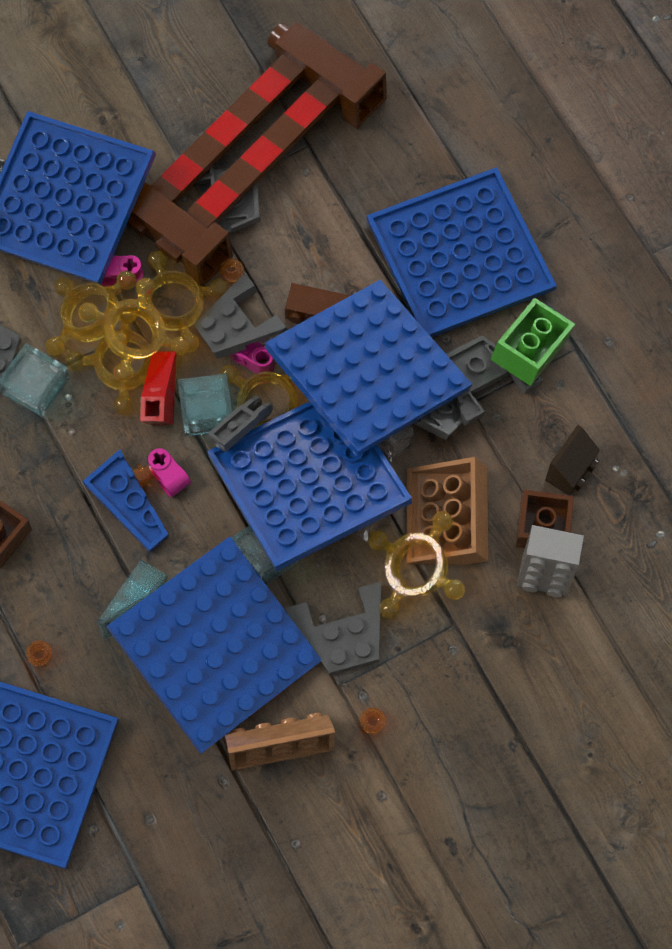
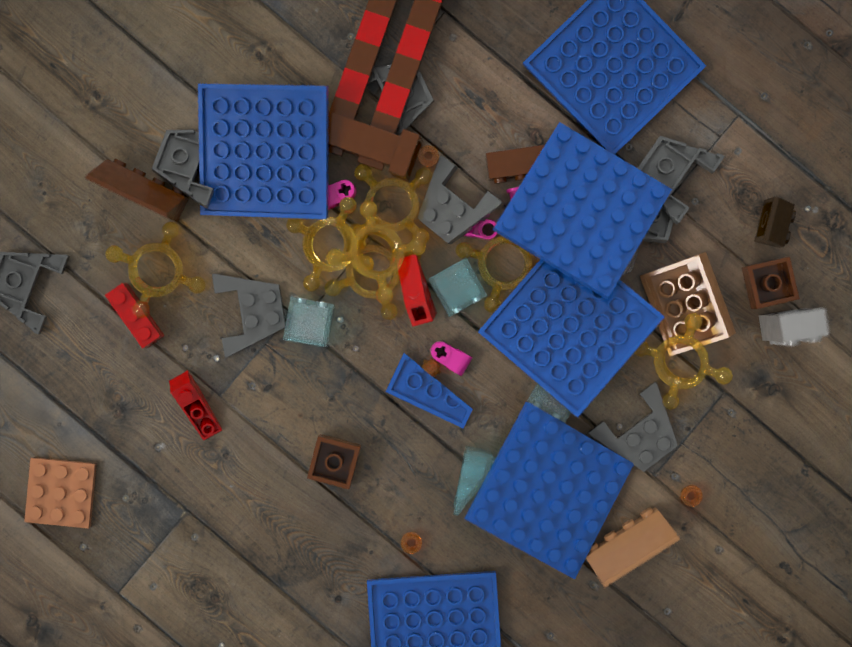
camera: 15 degrees left, 20 degrees up
(239, 423) = (495, 300): dark grey hinge -> none
(532, 341) = (707, 129): bright green brick -> none

